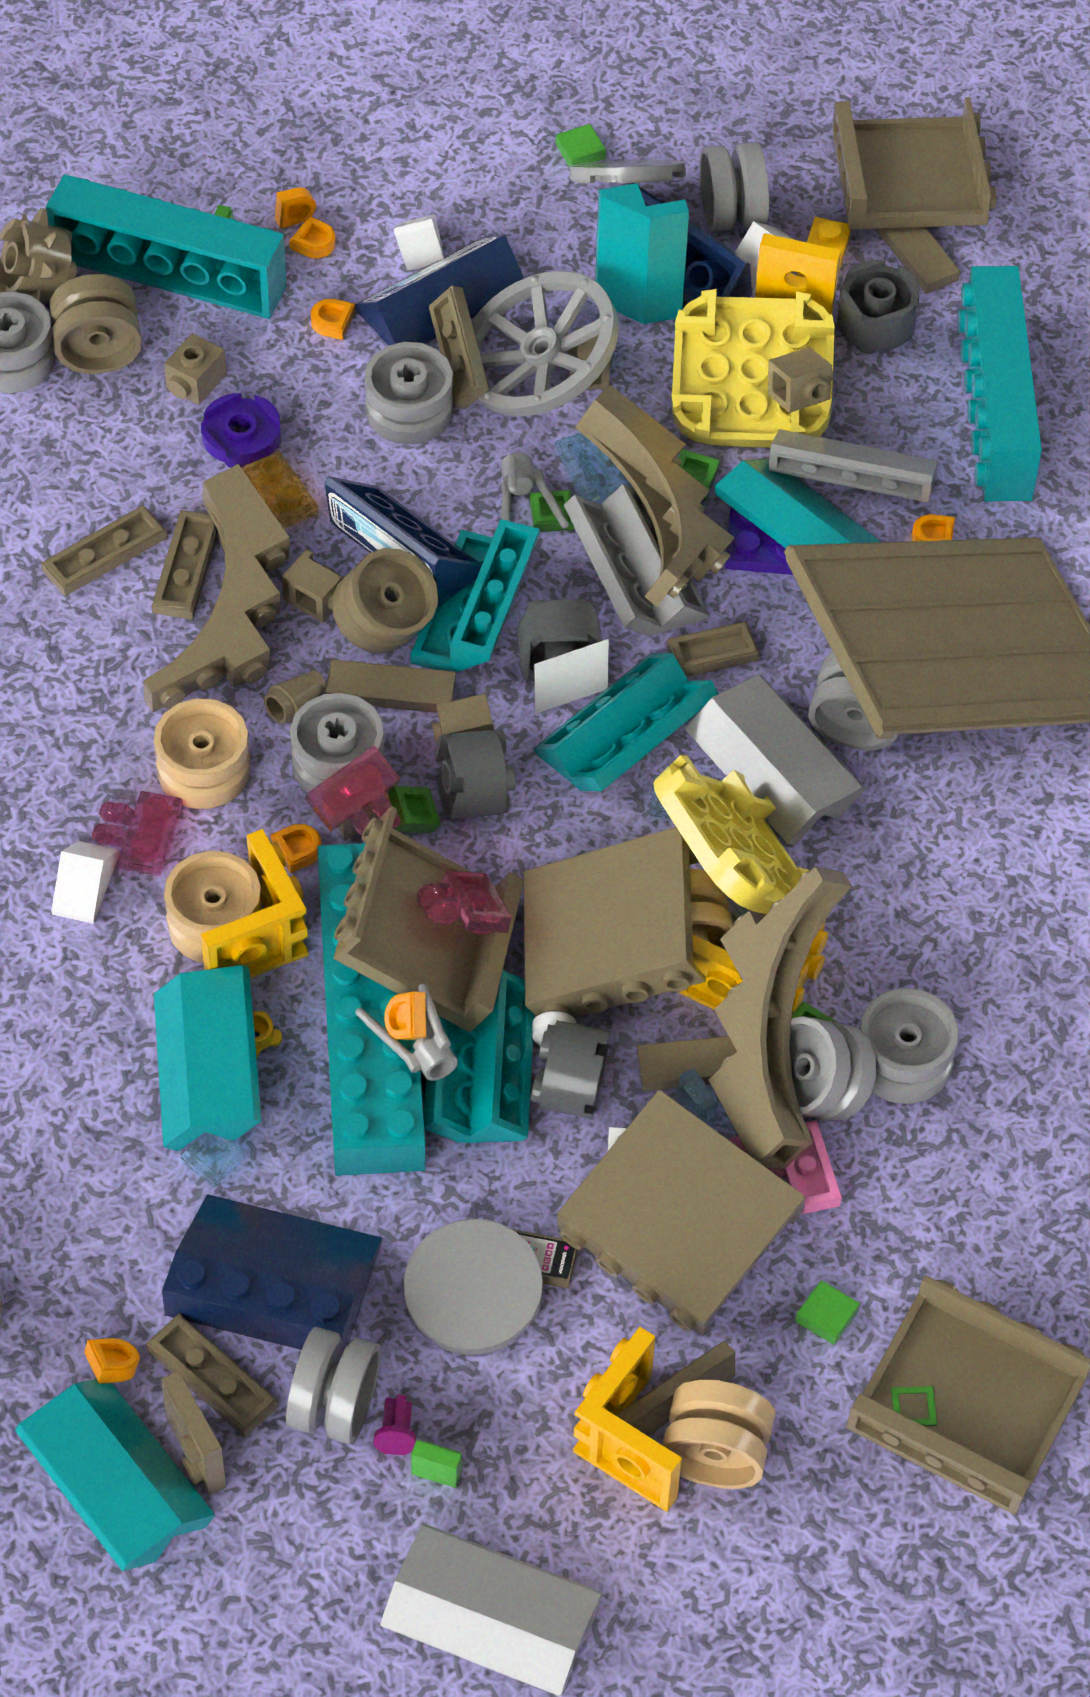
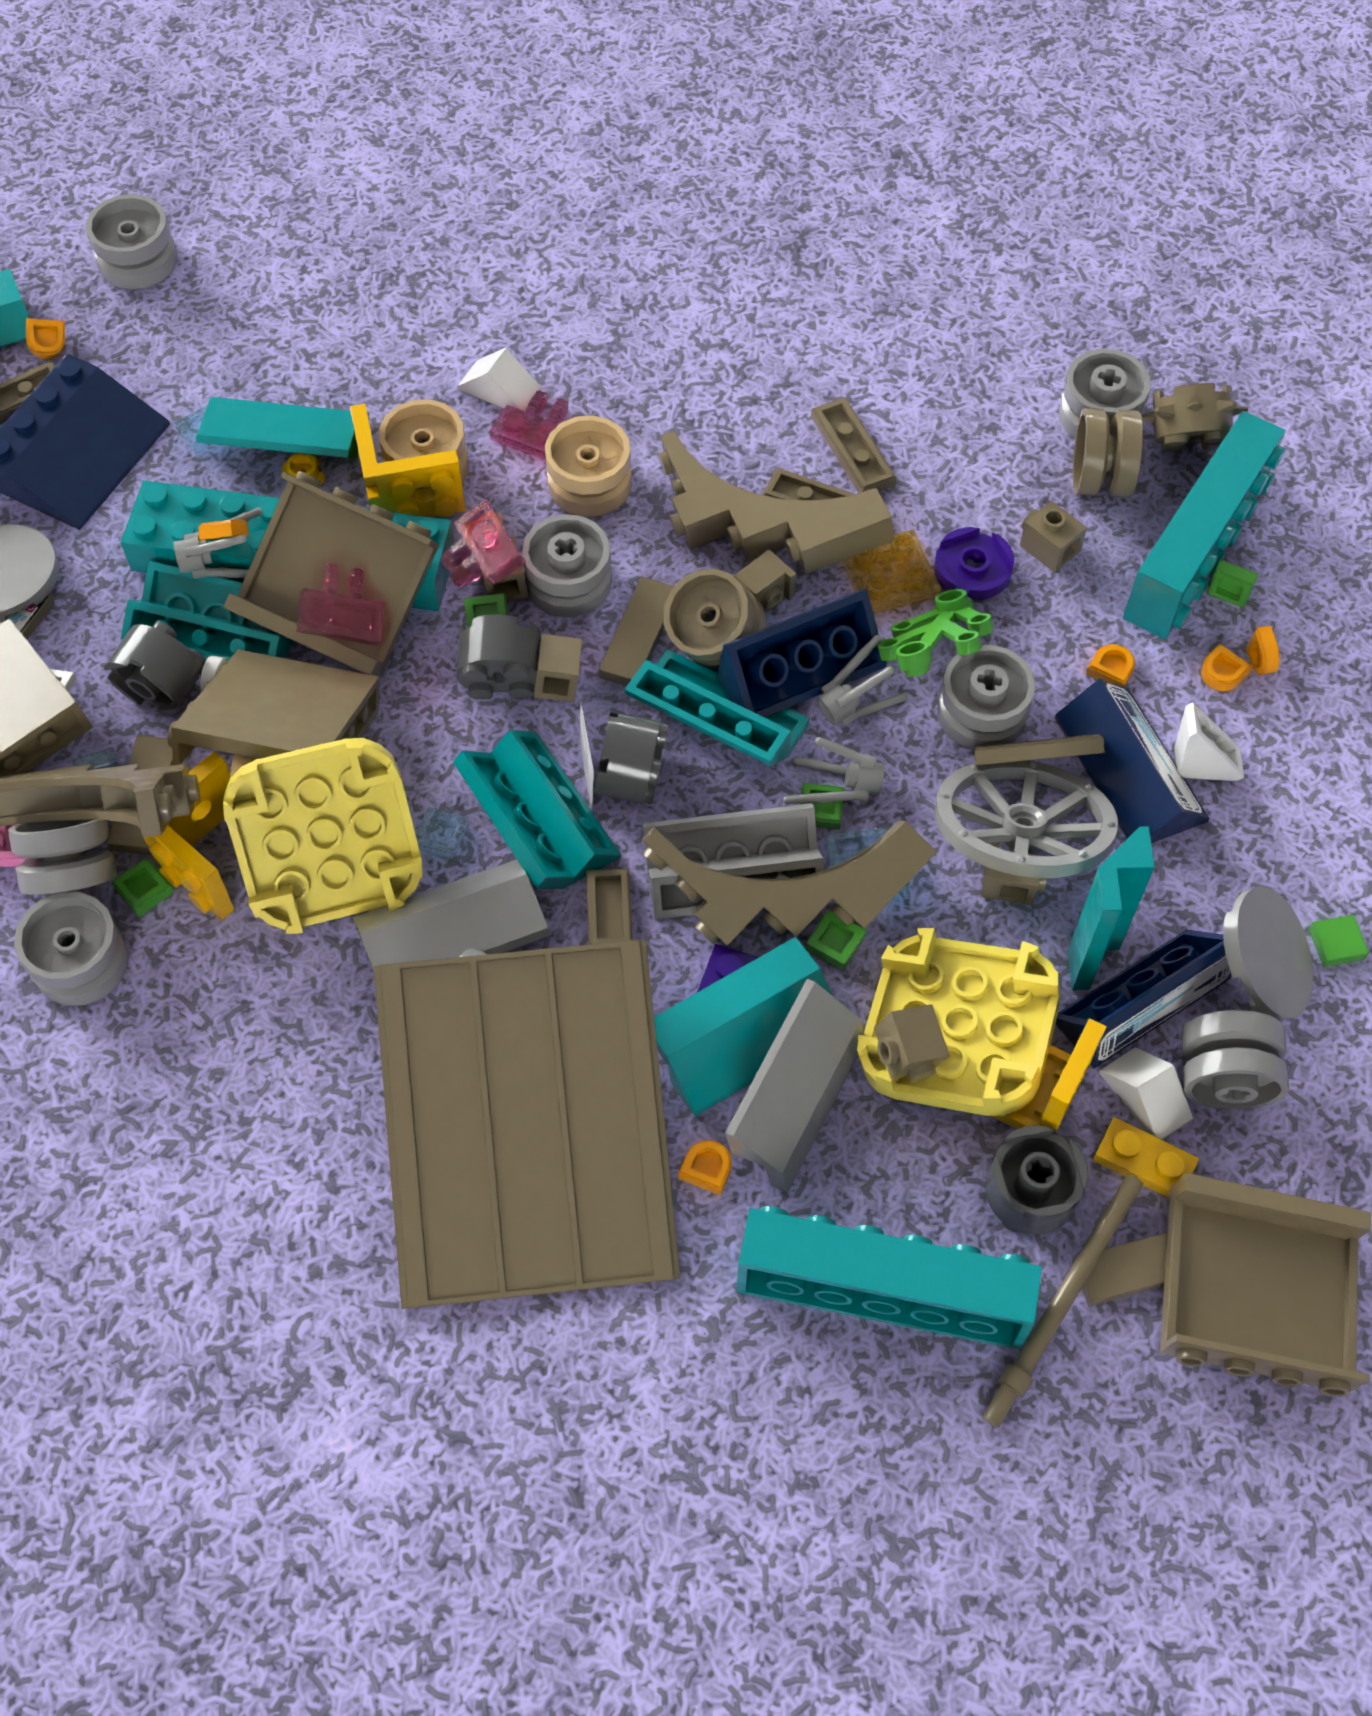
camera: 105 degrees right, 5 degrees up
(293, 695) = (642, 551): dark tan cone -> none
(346, 430) = (929, 628): none -> bright green plant
(438, 502) = (840, 702): none -> light grey plant
(1037, 311) = (1016, 1377): none -> dark tan bar

